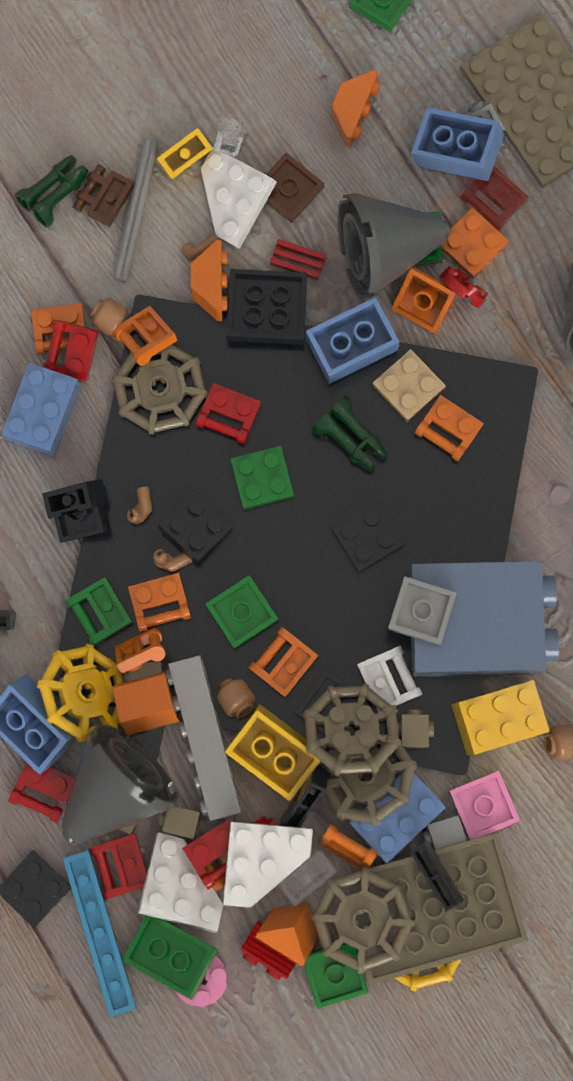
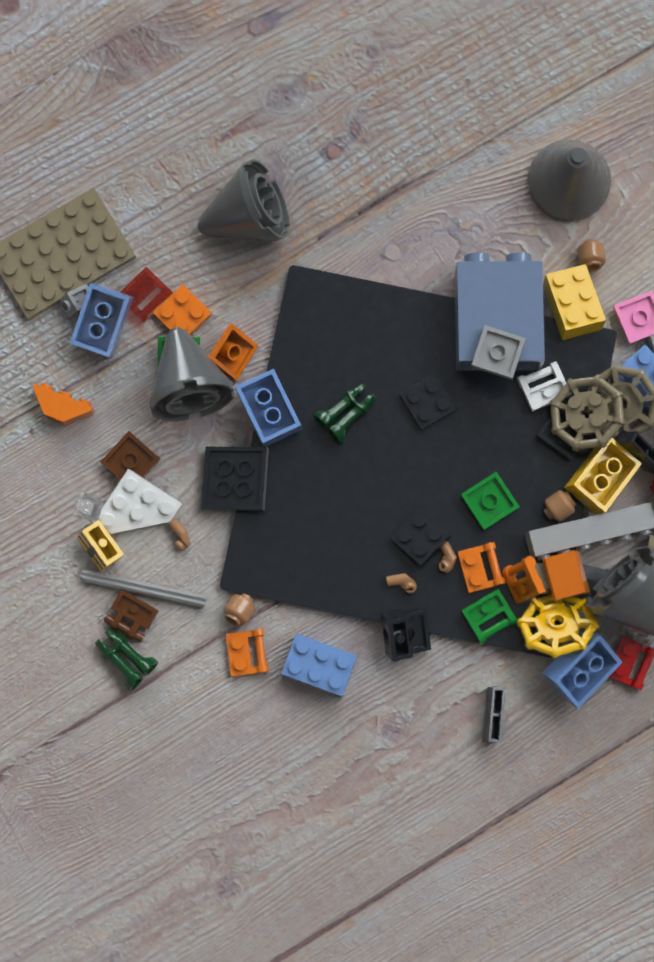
camera: 95 degrees left, 0 degrees up
(78, 353) = (269, 634): red plate -> none
(152, 331) = (254, 572): orange plate -> none
(168, 399) = (291, 561): dark tan plate -> none
(209, 280) = (212, 526): orange slope -> none
(232, 406) = (318, 508): red plate -> none
(262, 477) = (379, 484): green plate -> none
(290, 667) = (533, 462): orange plate -> none
(299, 250) = (198, 438): red tile -> none
(409, 385) = (303, 366): tan plate -> none
(415, 729) = (583, 365): dark tan brick -> none
(453, 421) = (335, 330): orange plate -> none
(457, 282) = (224, 319): red plate -> none

